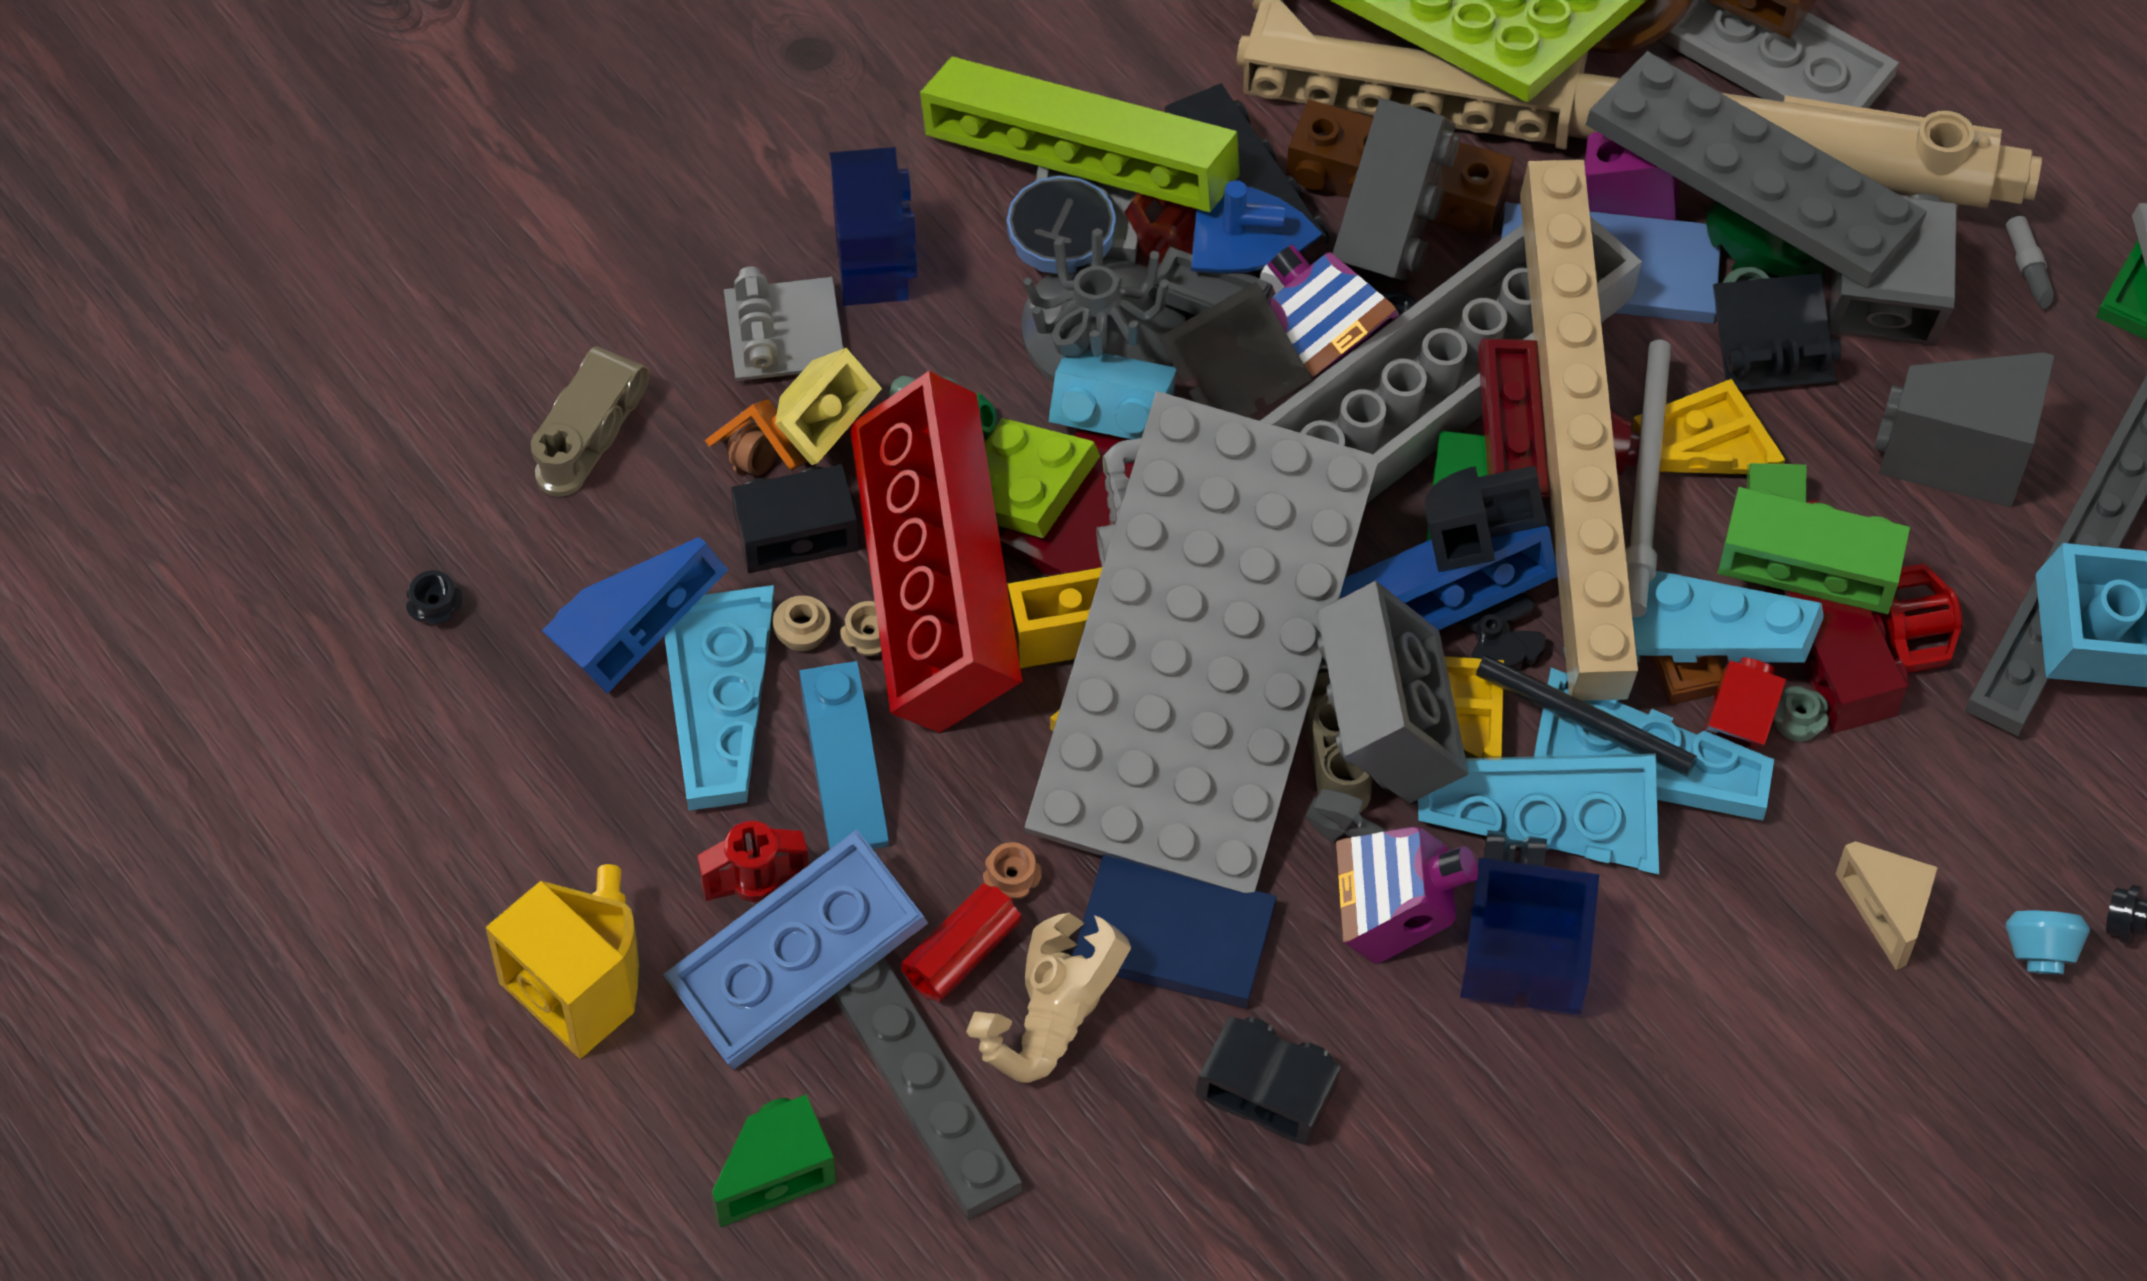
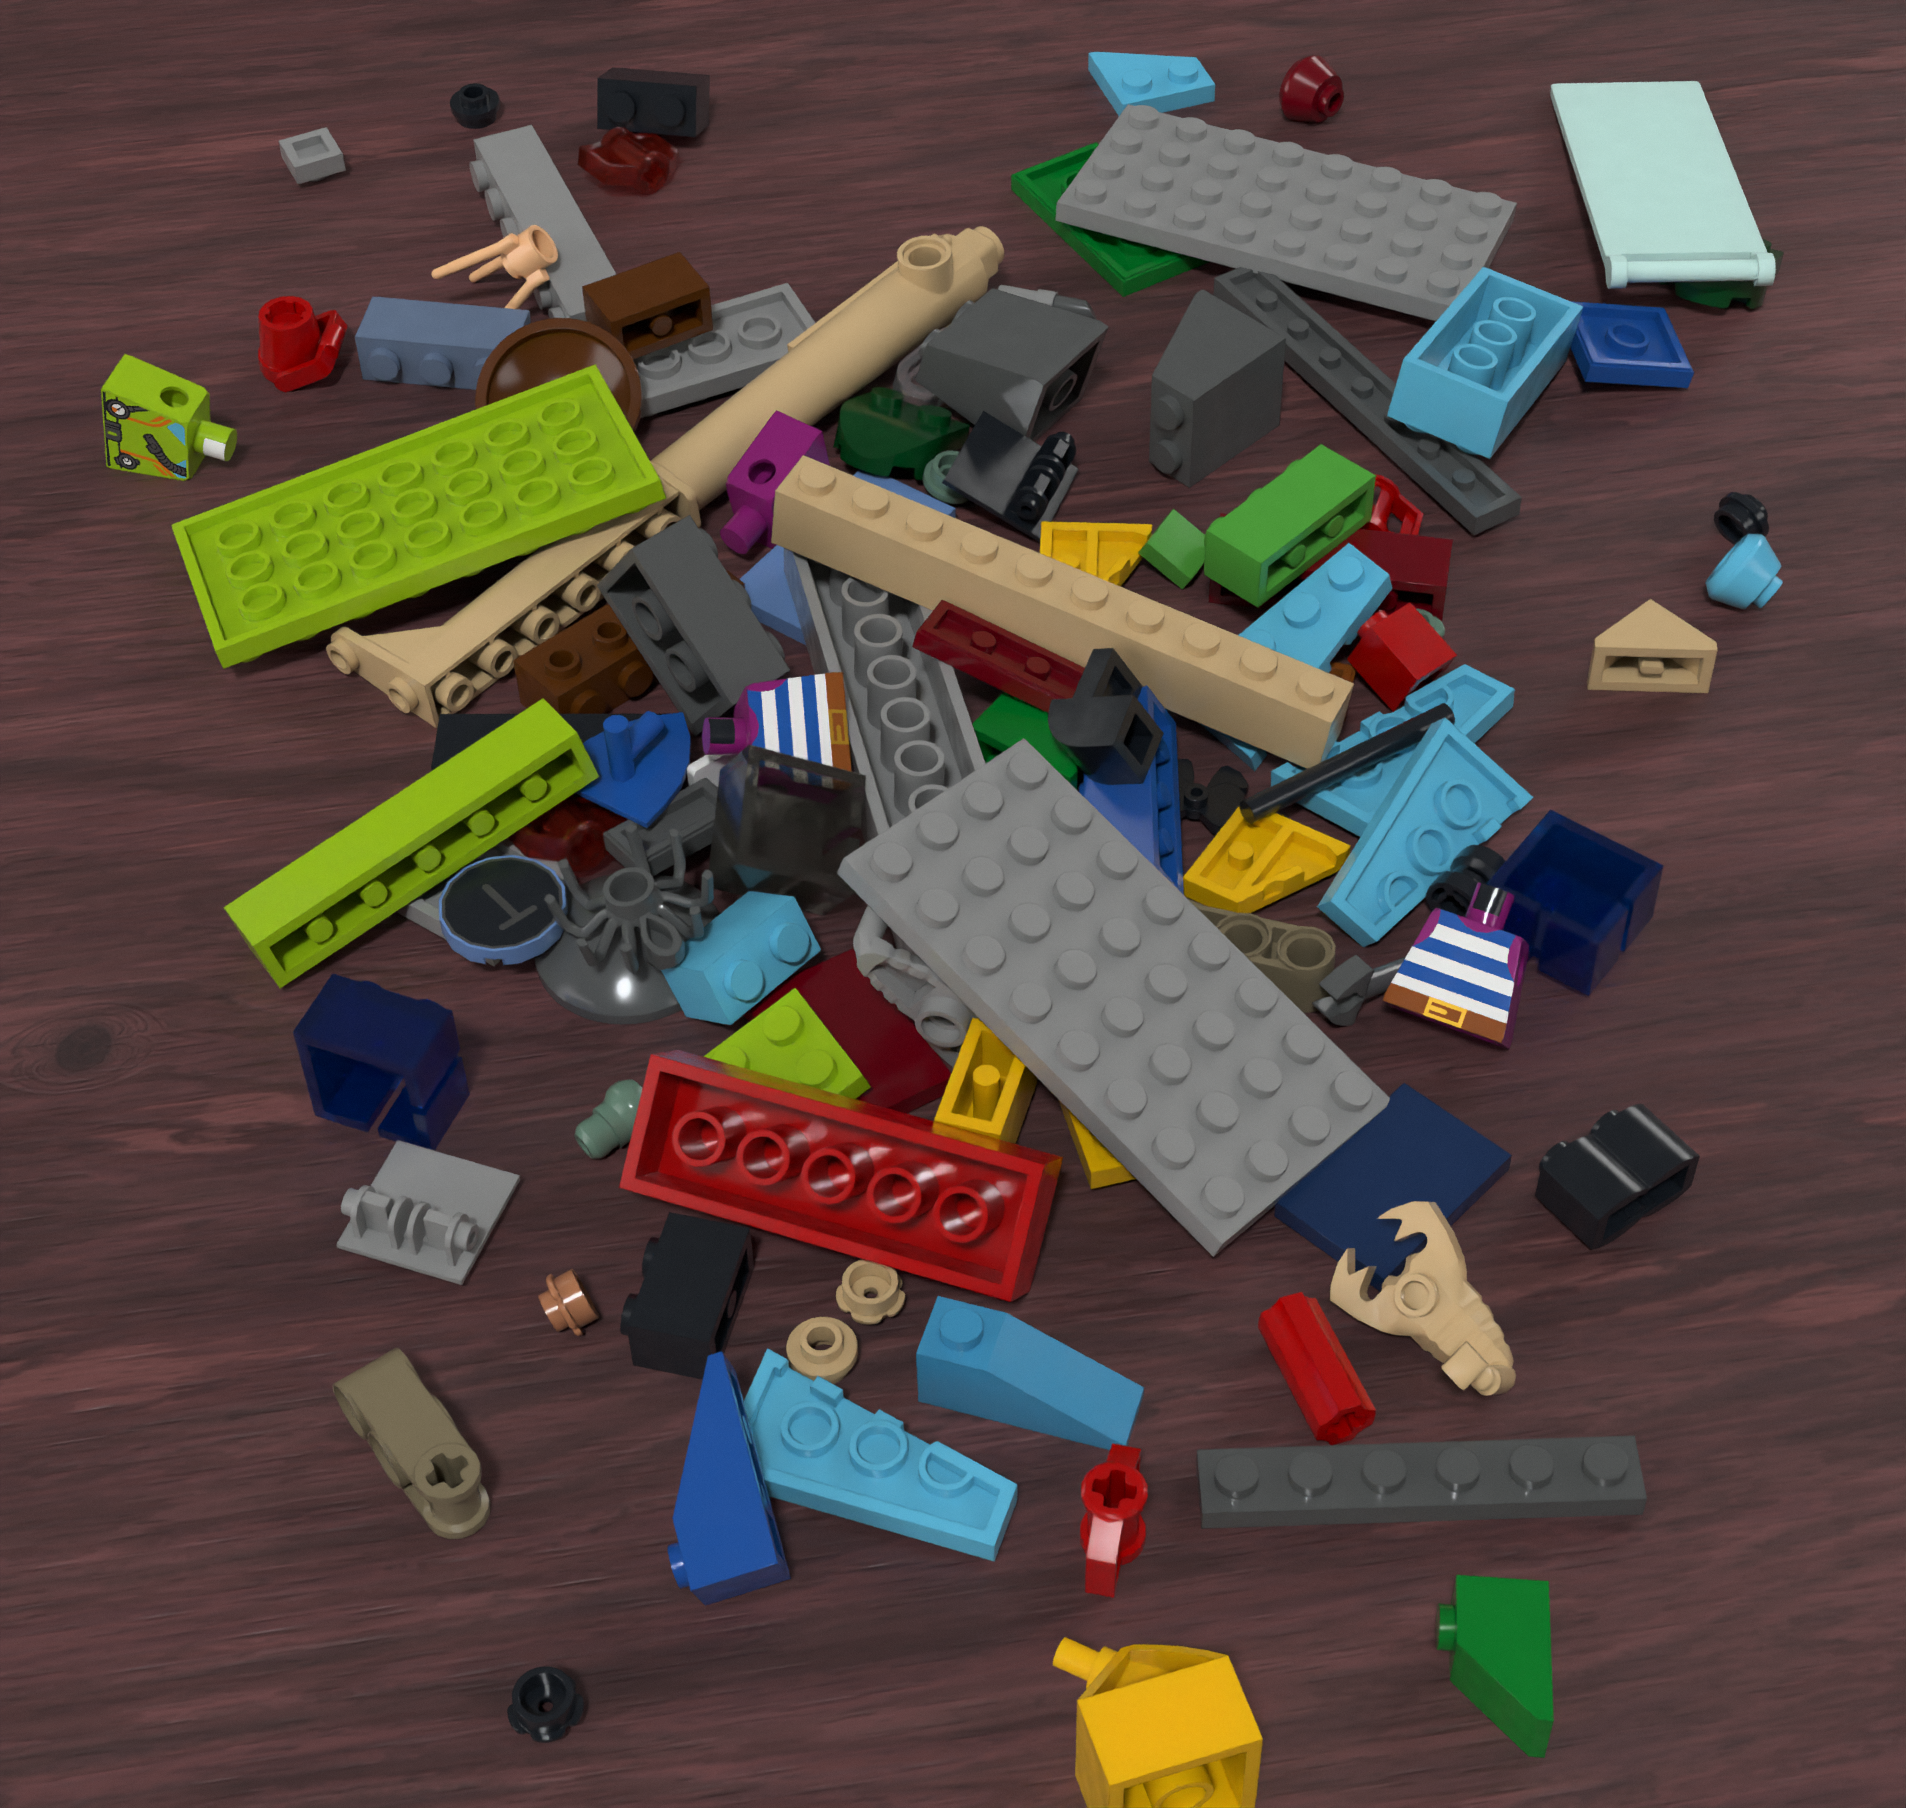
camera: 60 degrees left, 10 degrees down
(765, 416) = (539, 1270): orange bracket -> none
(795, 949) = (1253, 1518): medium blue tile -> none
(824, 402) = (574, 1195): light yellow slope -> none
(1012, 857) = (1247, 1275): nougat plate -> none
(1391, 693) = (1272, 864): dark grey brick -> none
(1756, 168) = (869, 377): dark grey plate -> none

